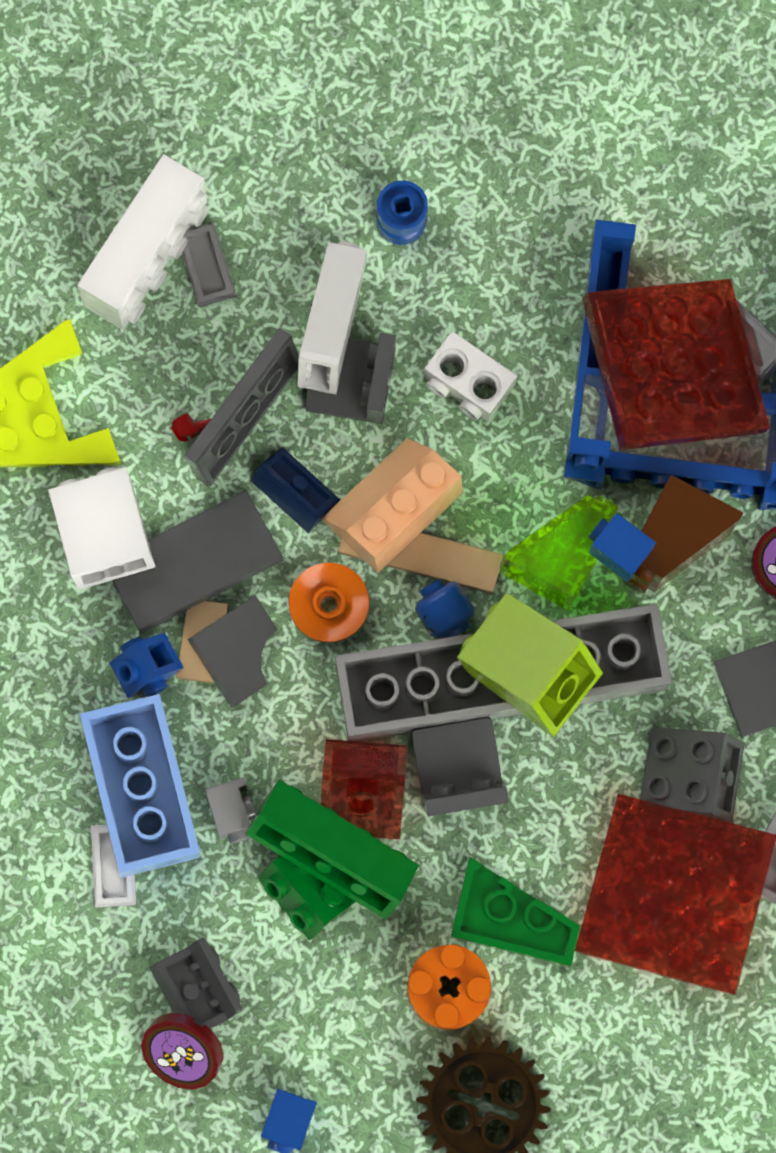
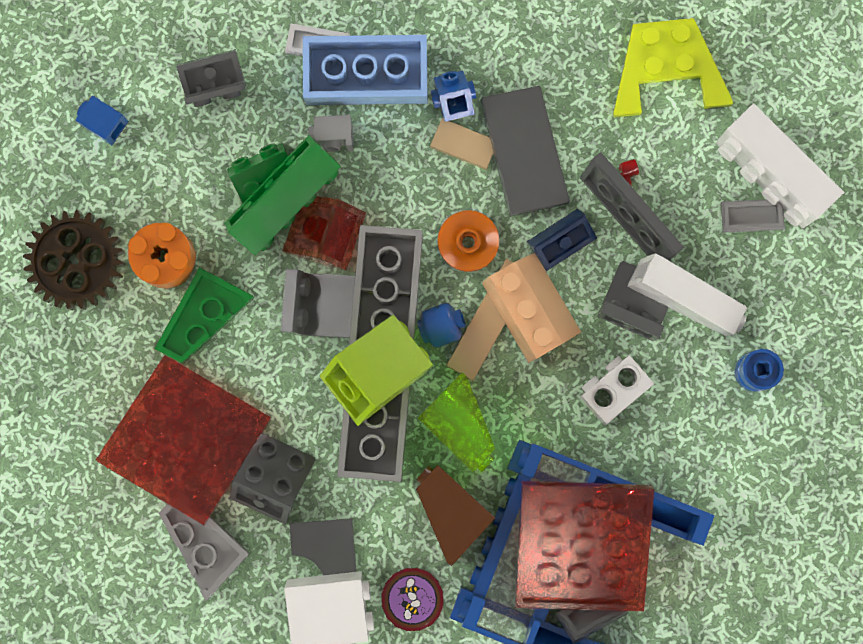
camera: 115 degrees right, 5 degrees up
(101, 527) = (565, 87): white brick -> none
(182, 1051) = (168, 55): tile -> none
(233, 650) = (451, 163): dark grey tile -> none
(620, 546) = (446, 460): blue brick -> none

